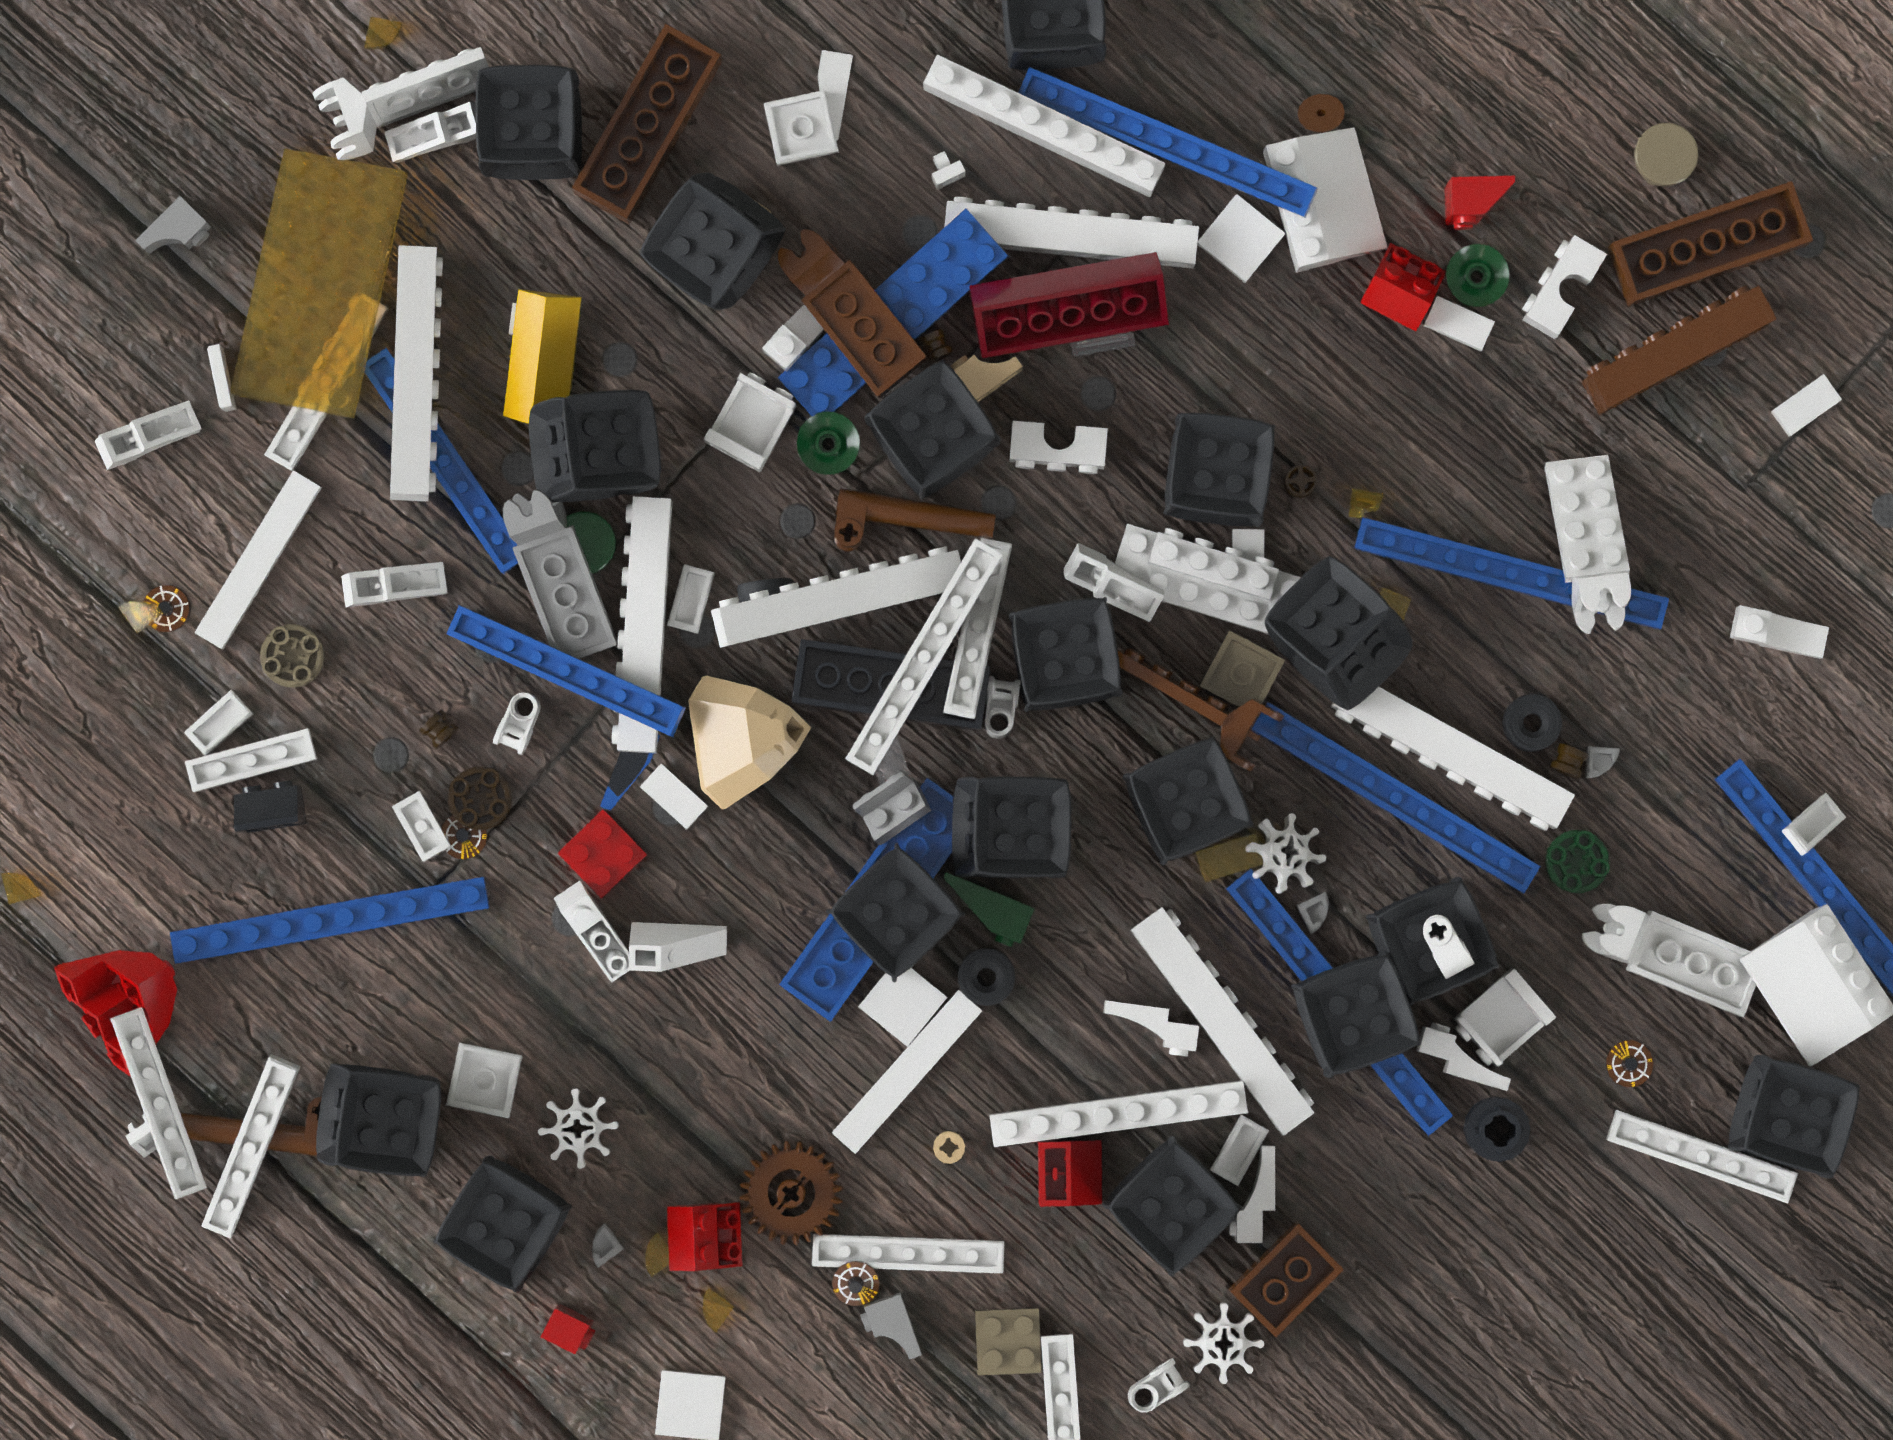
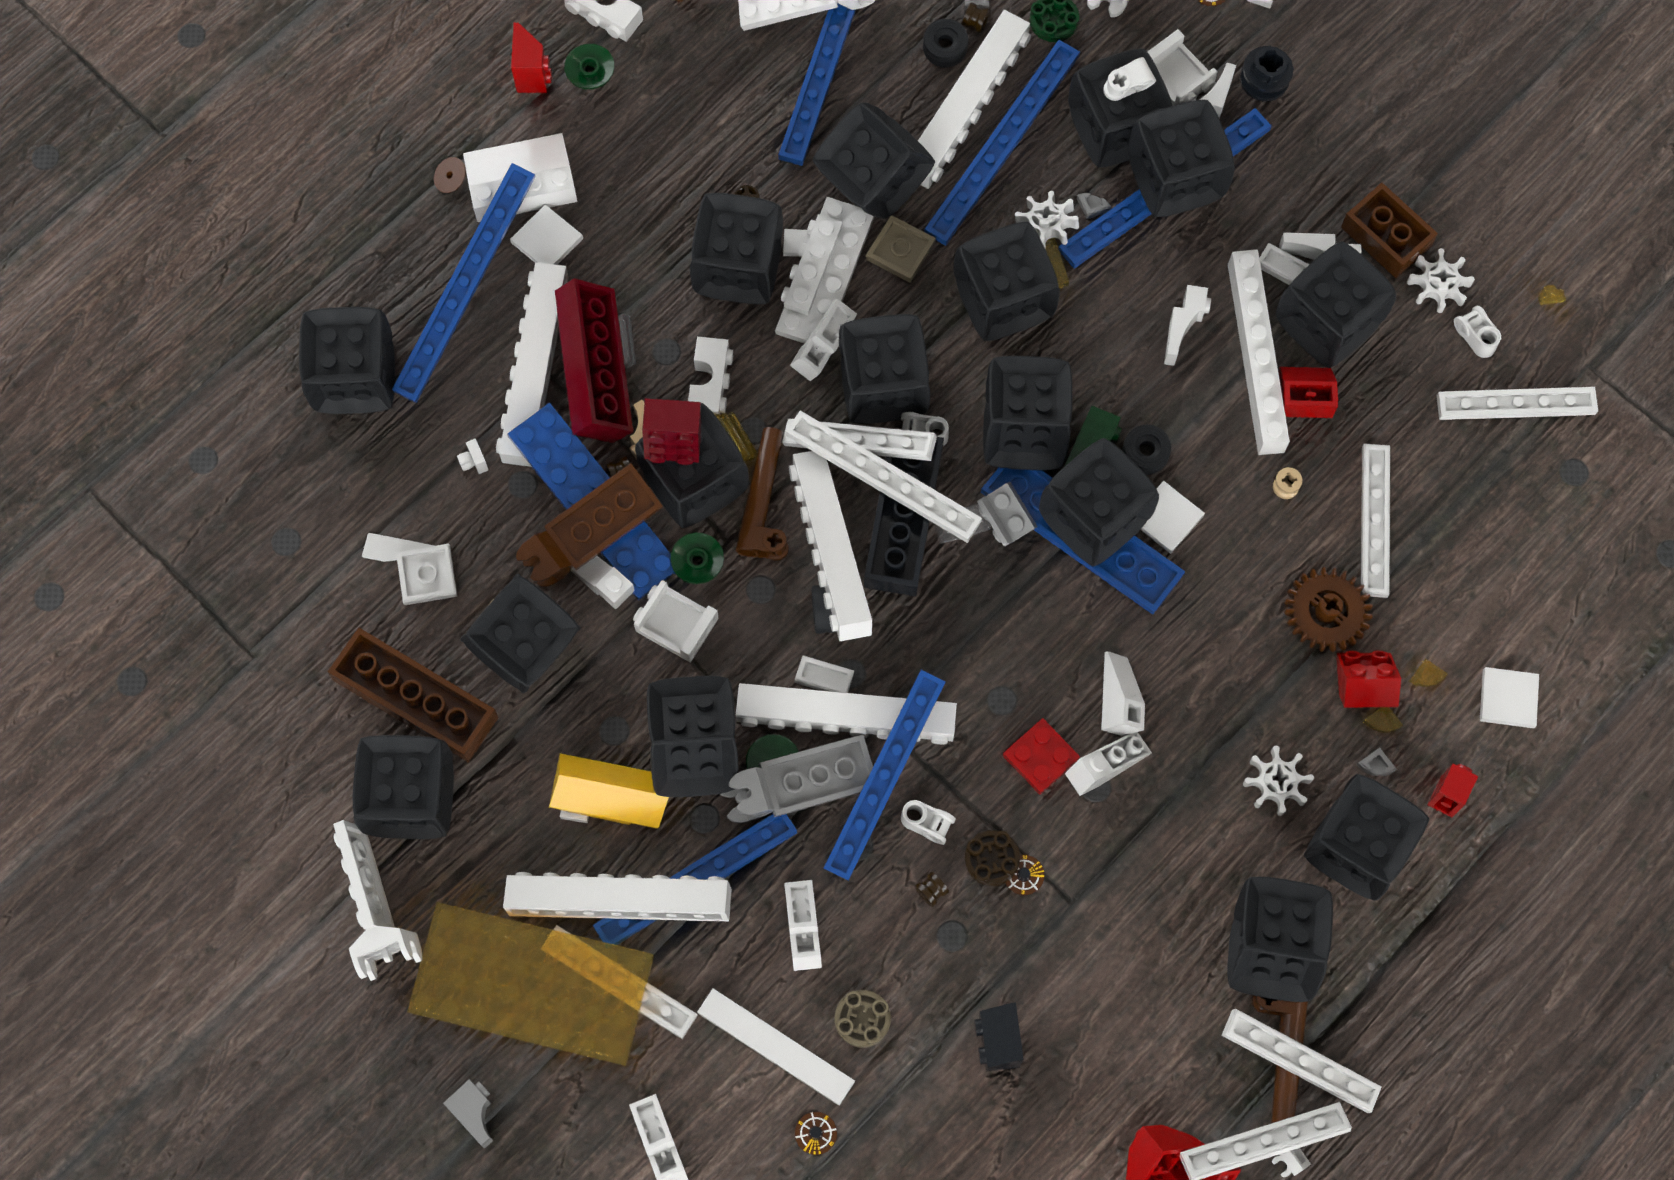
camera: 85 degrees left, 15 degrees down
(140, 614) = (820, 1154): clear yellow tile -> none
(218, 723) = (920, 1086): white tile -> none
(221, 377) = (610, 1073): white tile -> none
(251, 760) = (955, 1056): white plate -> none
(329, 920) = (1098, 994): blue plate -> none
(381, 33) = (311, 925): clear yellow tile -> none
(421, 826) = (1016, 907): white plate -> none
(432, 132) = (404, 876): white slope -> none
(484, 1080) = (1235, 859): white tile -> none
(626, 771) = (971, 736): black sticker -> none
(674, 796) = (993, 695): white tile -> none
(740, 737) = (945, 632): tan brick -> none
(855, 1283) = (1402, 561): reddish brown piece -> none
(890, 1319) = (1431, 531): light grey arch -> none
(906, 1071) = (1226, 516): white tile -> none
(937, 399) = (671, 431): none -> dark red brick
(986, 483) = (738, 435): none -> clear yellow tile
(1008, 1341) = (1445, 445): dark tan plate -> none
(1043, 126) = (441, 381): white brick -> none
(1223, 1021) = (1187, 267): white brick -> none
(1234, 725) = (941, 246): reddish brown hinge -> none
(1363, 502) = (766, 156): clear yellow tile -> none
(1403, 287) = (595, 119): red slope -> none
(1459, 323) = (626, 84): white tile -> none

